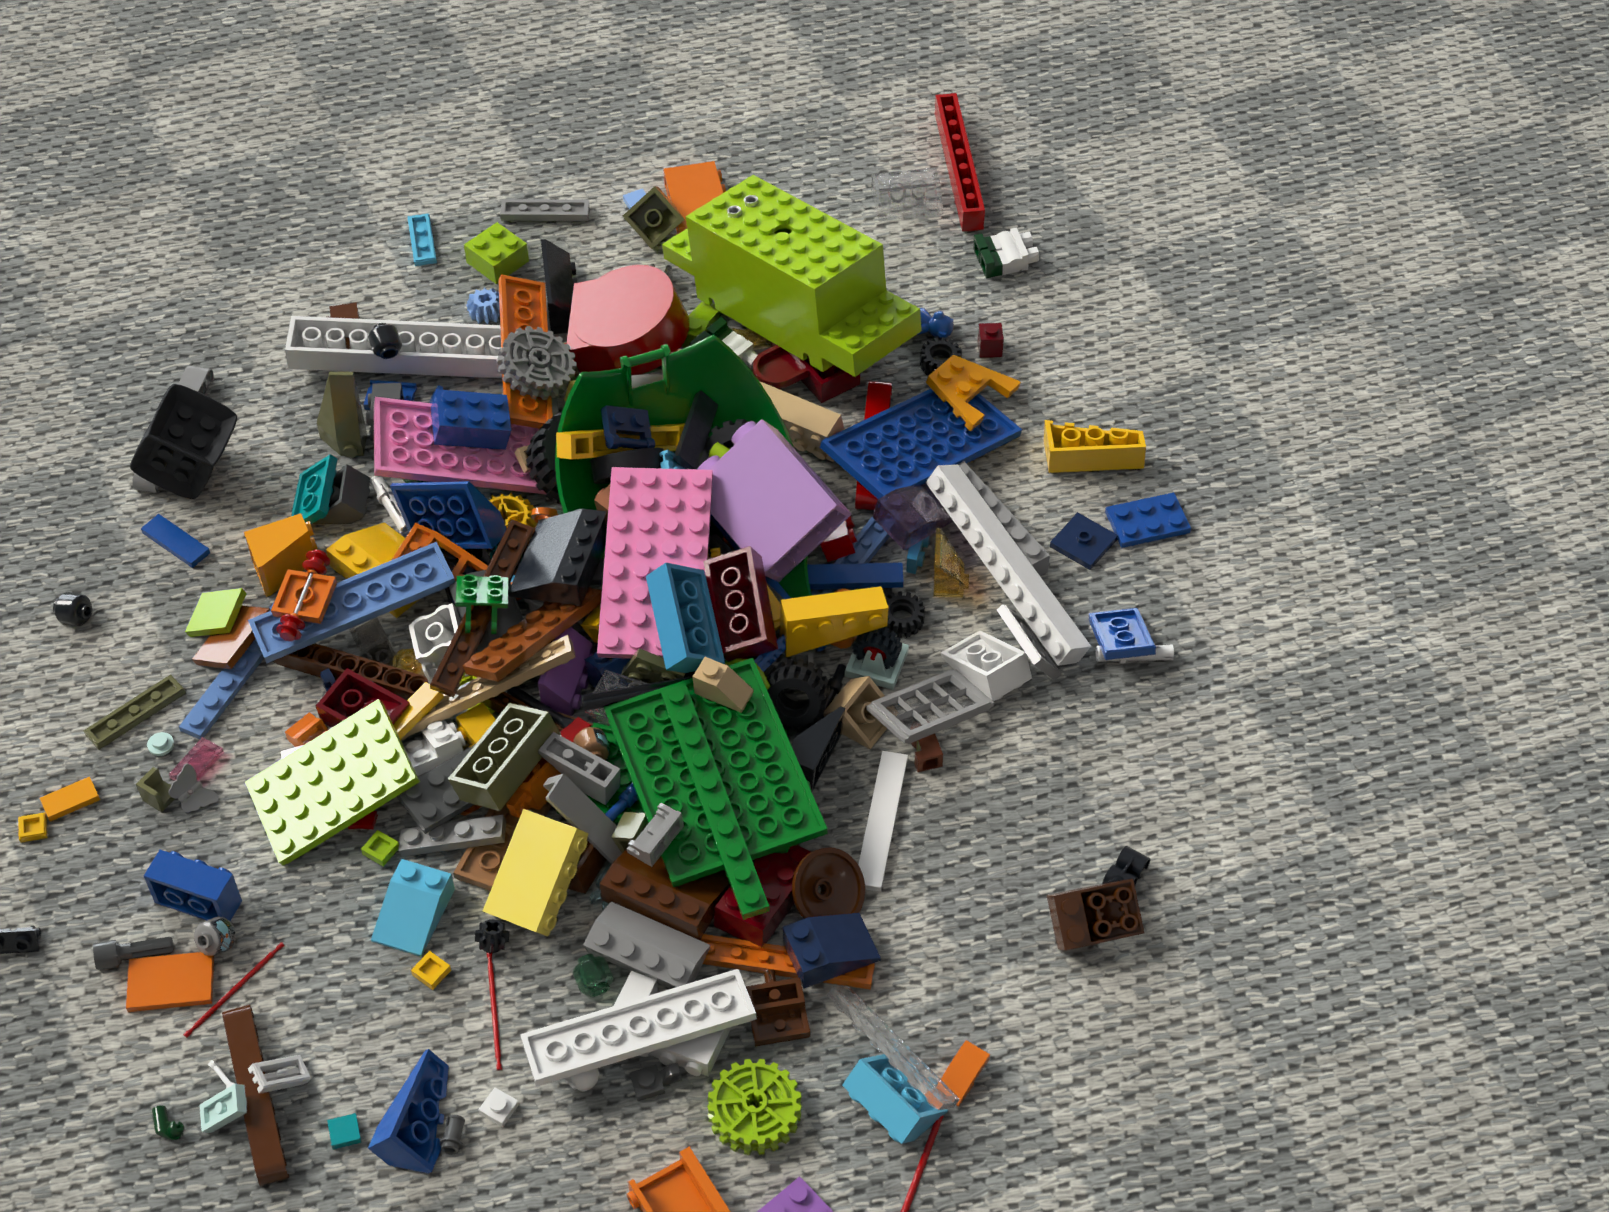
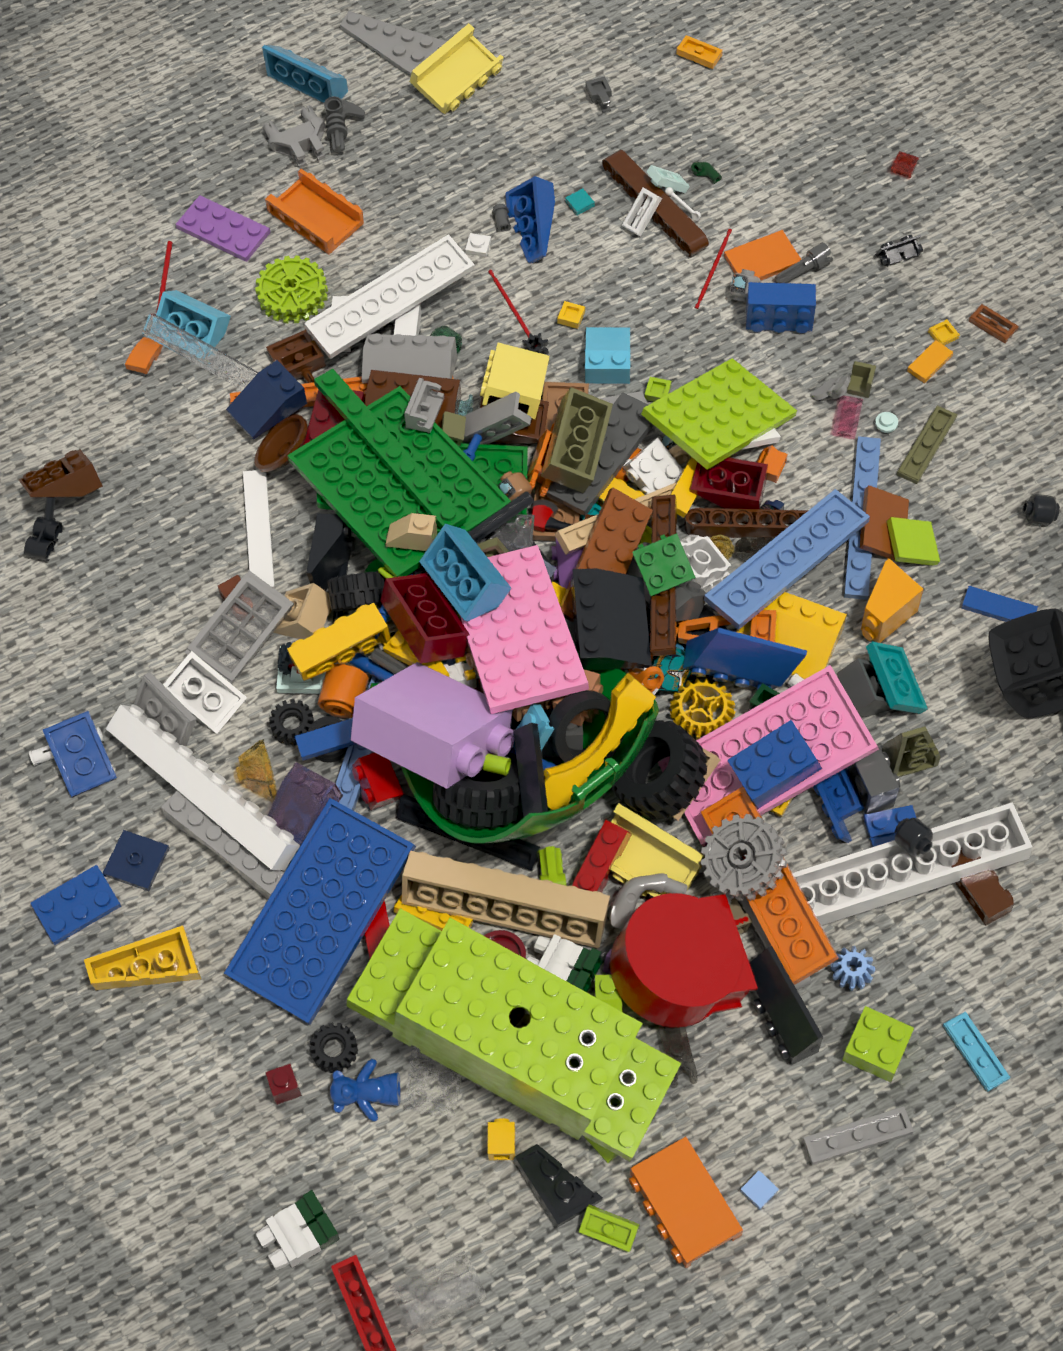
camera: 165 degrees right, 10 degrees up
(304, 596) = (828, 537): orange plate -> none
(586, 770) = (509, 455): light grey slope -> none
(629, 422) = (598, 741): dark blue plate -> none
(653, 217) = (722, 1145): olive slope -> none
(962, 380) = (300, 1000): light orange wing -> none

